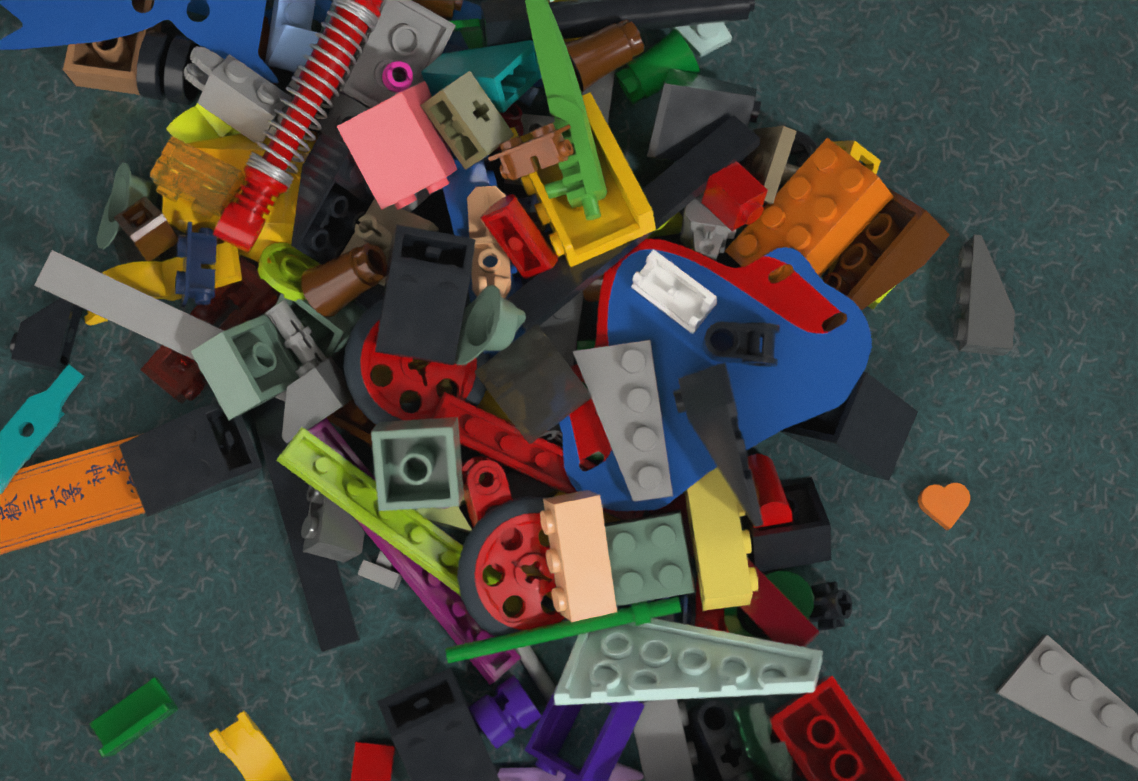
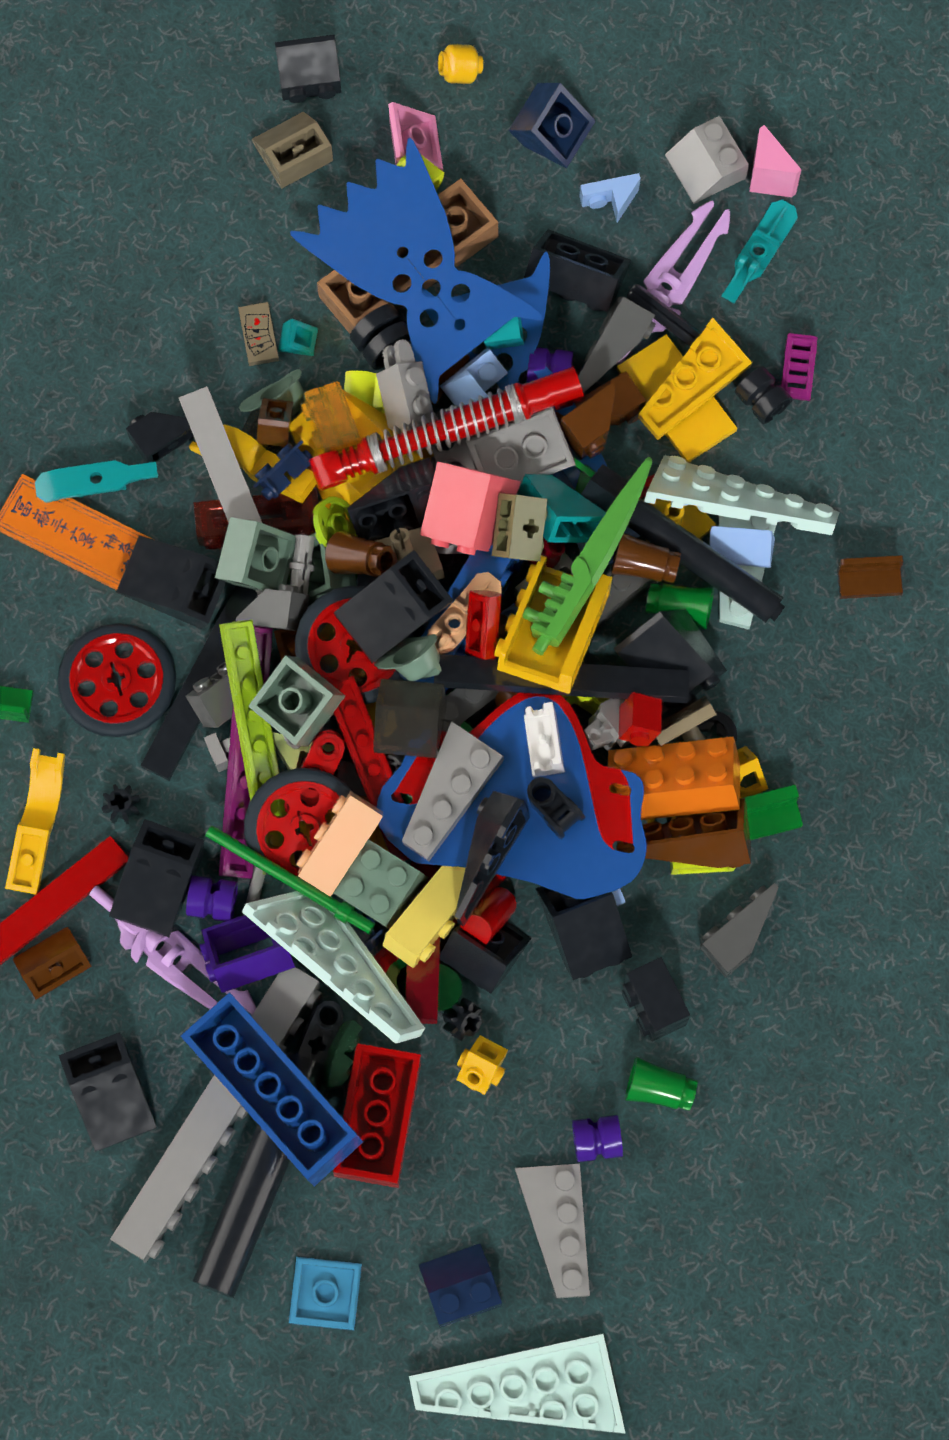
camera: 45 degrees right, 5 degrees down
(52, 166) = (258, 334): none -> dark tan tile
(92, 138) = (298, 338): none -> teal slope
(268, 619) = (128, 718): none -> wedge
(327, 708) = (129, 804): none -> black gear
(401, 68) = (496, 464): dark pink pin -> none
(546, 144) = (548, 582): dark orange hinge -> none
(891, 636) = (482, 1065): none -> yellow brick
(910, 171) = (773, 812): none -> green panel
(944, 503) = (596, 1029): orange tile -> none
(978, 430) = (655, 1000): none -> black brick
(1044, 598) = (597, 1138): none -> dark purple wheel
(1047, 502) = (660, 1086): none -> green plant

